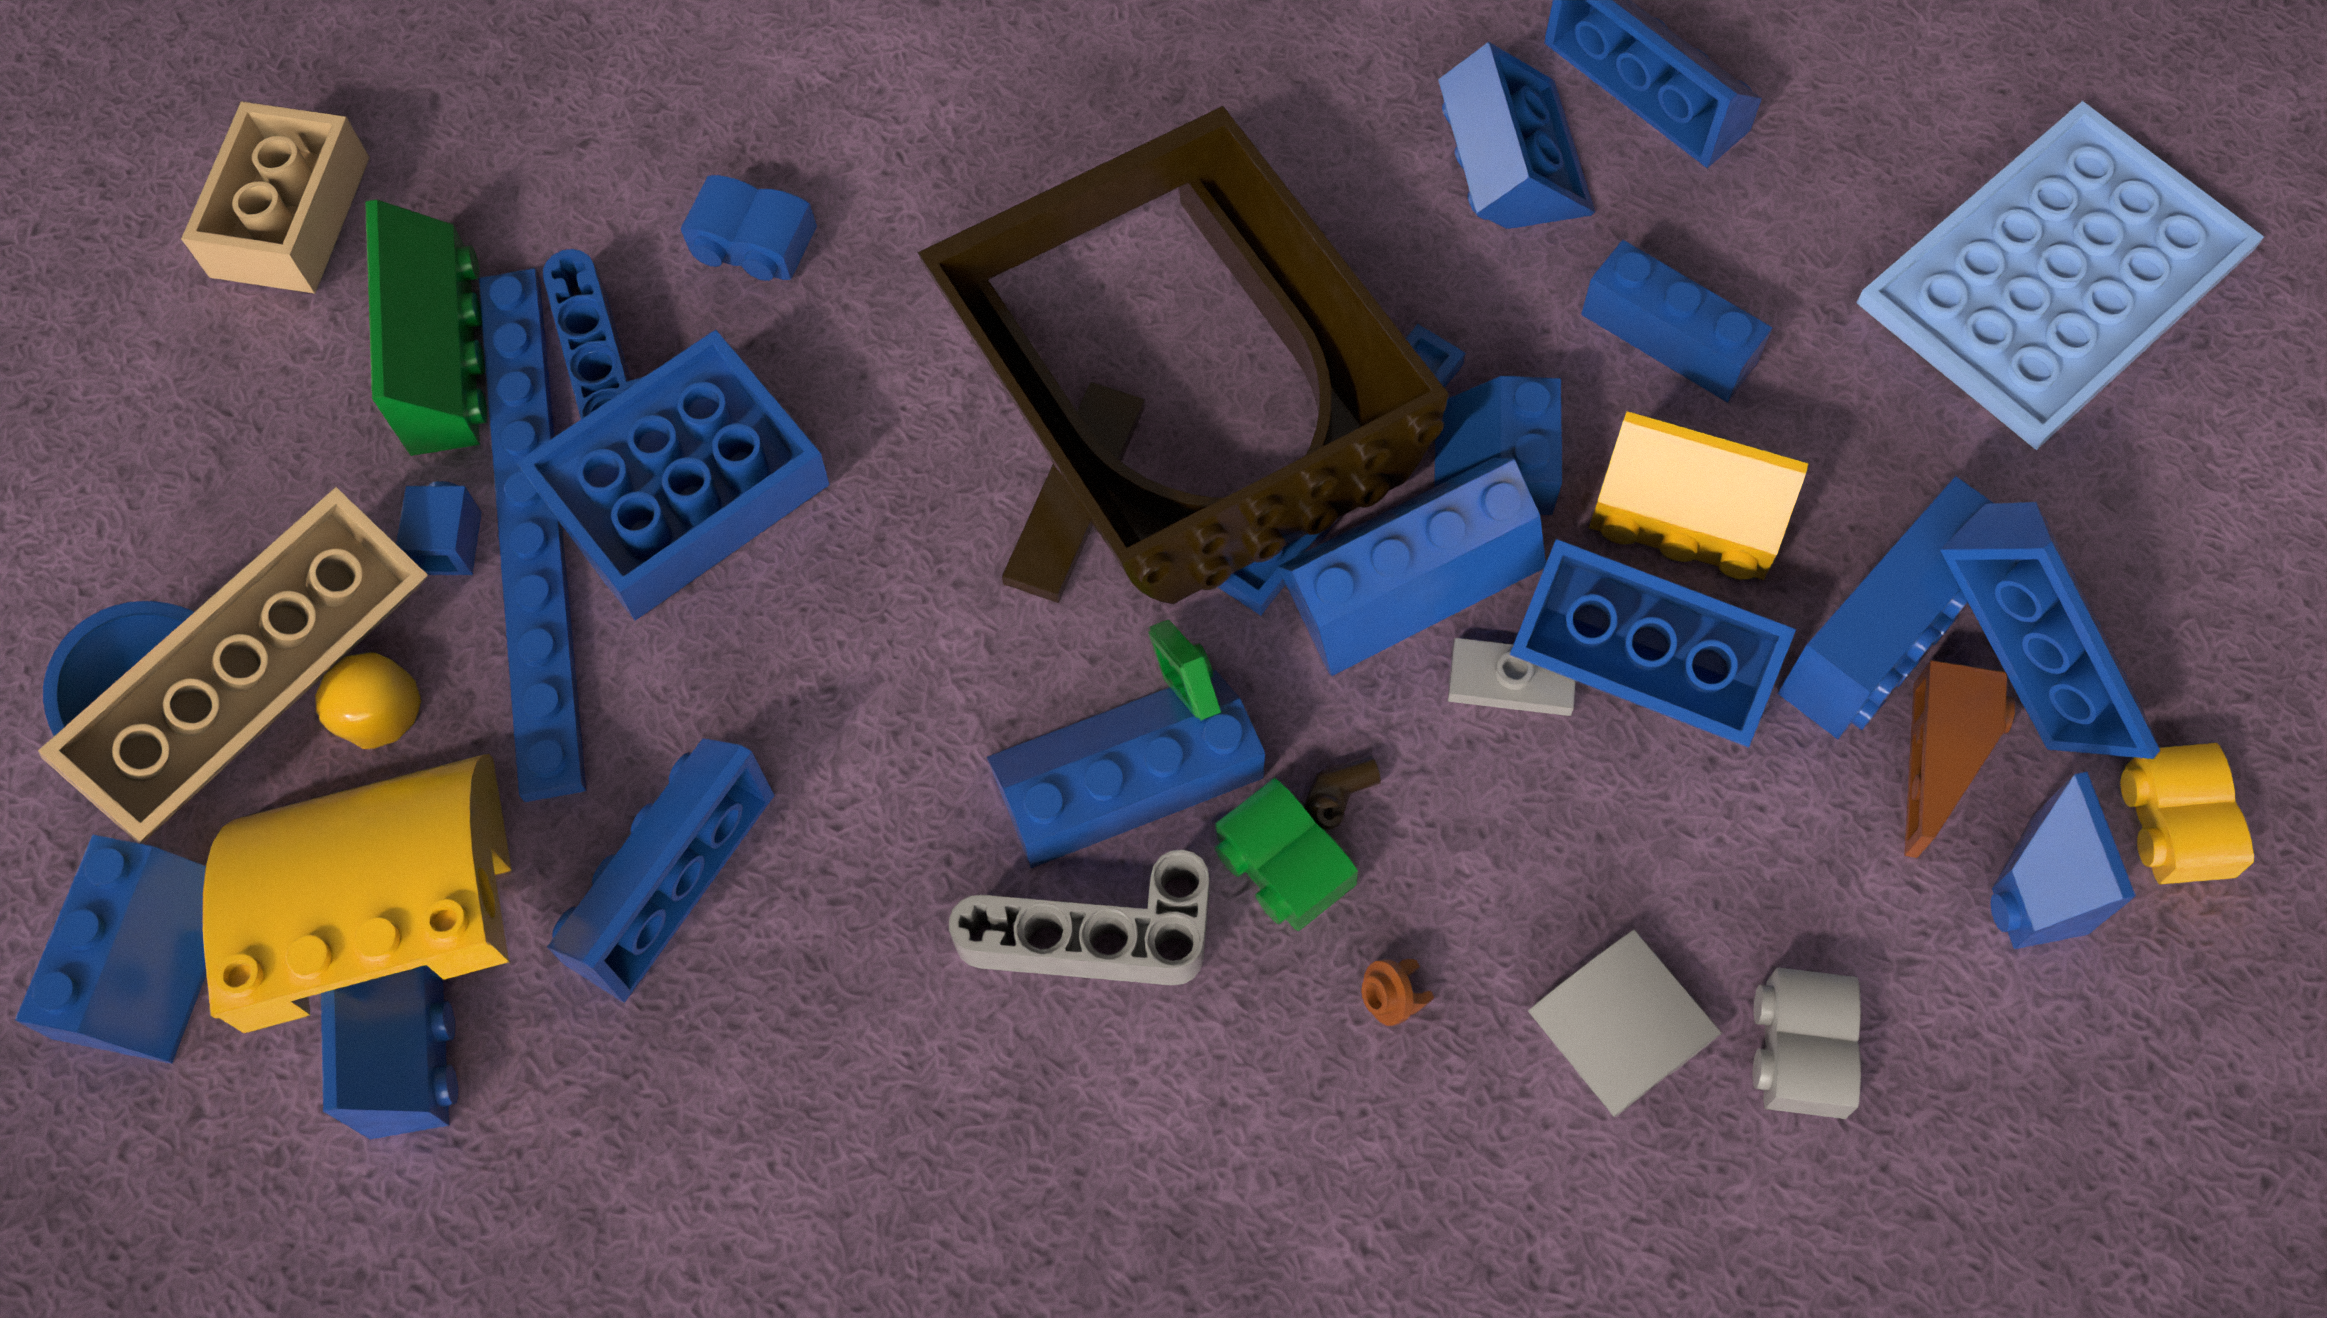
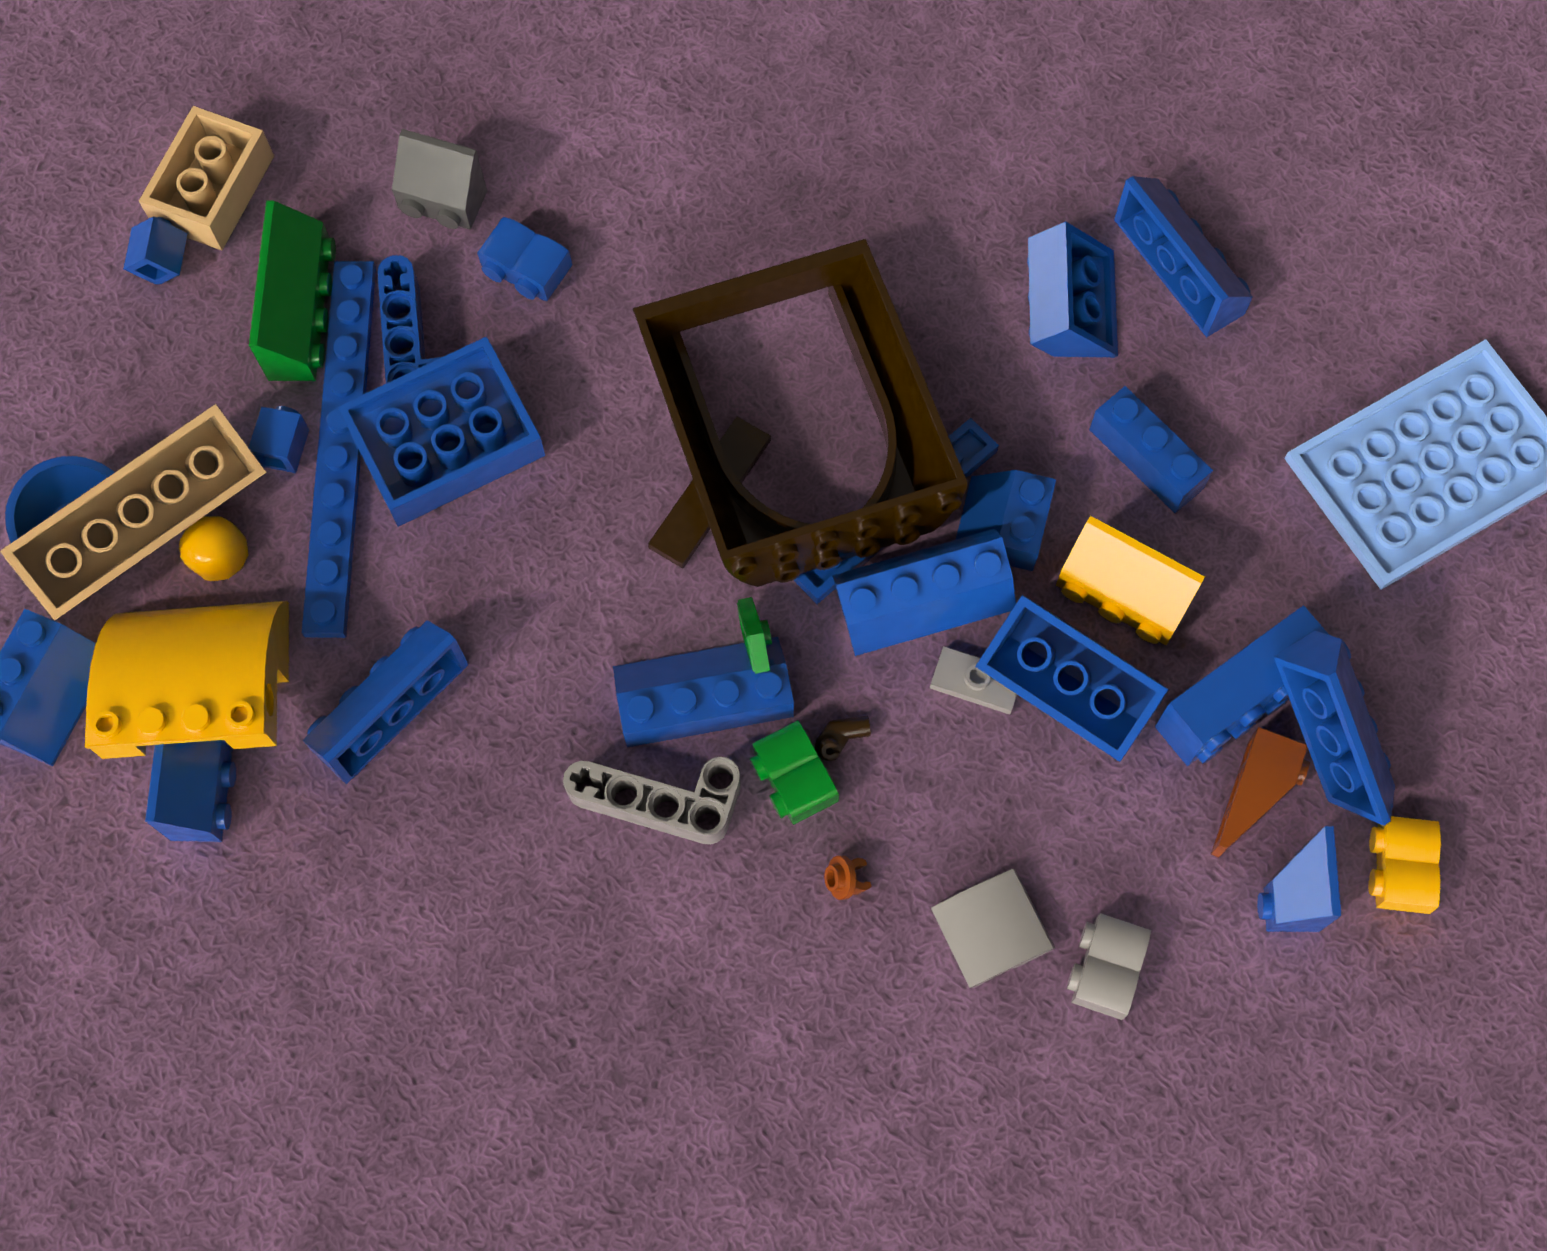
camera: 10 degrees right, 5 degrees up
(217, 306) = (155, 250): none -> blue brick
(606, 141) = (438, 180): none -> slope

